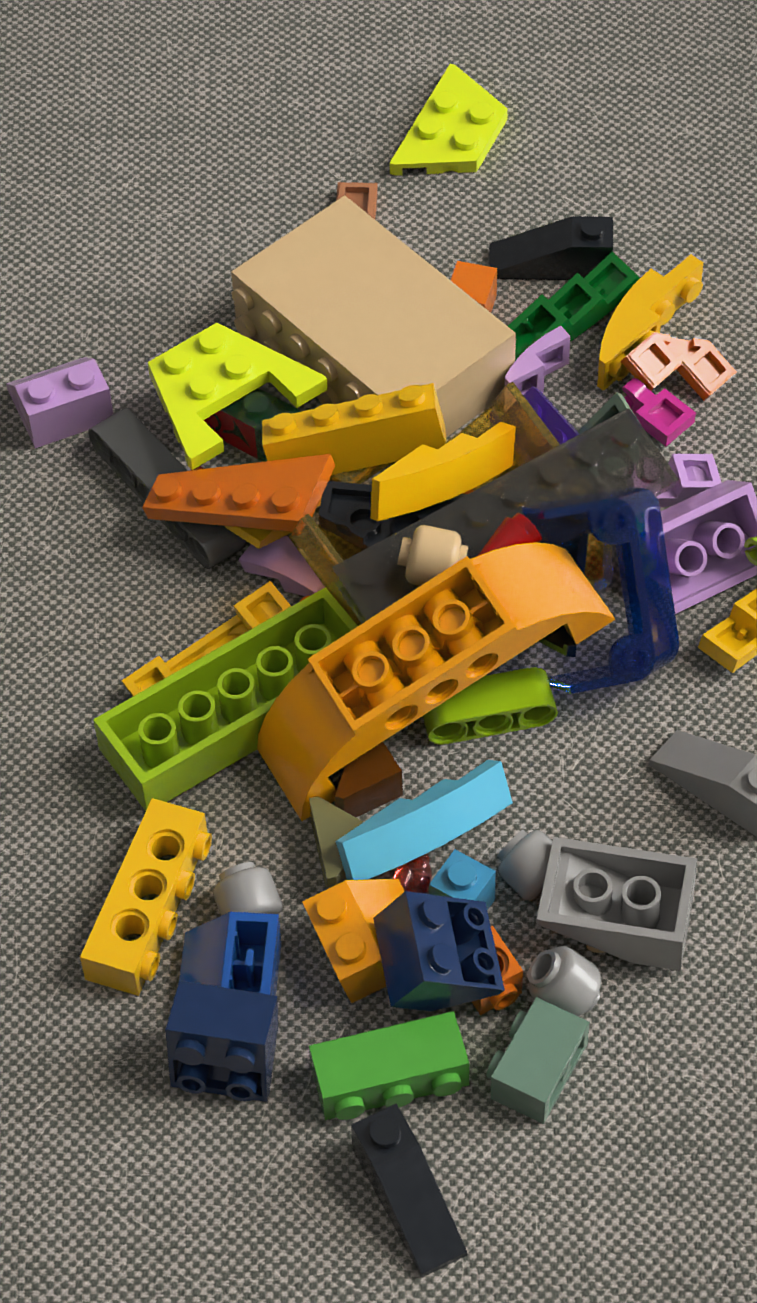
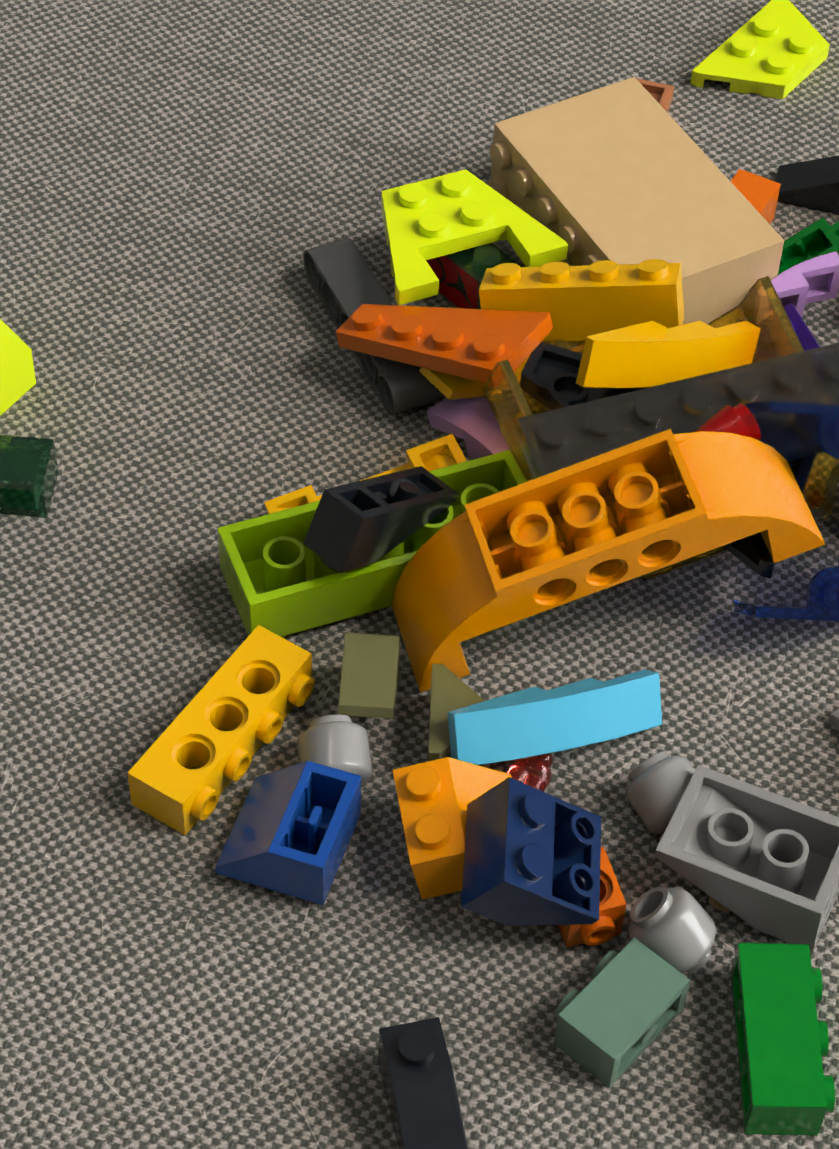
camera: 10 degrees right, 5 degrees down
(61, 400) = (284, 221): lavender slope -> none
(222, 1041) = (258, 901): dark blue slope -> none
(229, 679) = (373, 516): none -> black slope
(259, 822) = (369, 675): none -> olive slope
(369, 782) = (505, 661): reddish brown slope -> none
(389, 1066) = (445, 976): bright green brick -> none
(430, 553) = (629, 420): tan head -> none
(464, 879) = (588, 788): dark azure brick -> none
(494, 707) = (662, 616): lime beam -> none
(671, 1051) = (780, 1040): none -> green brick

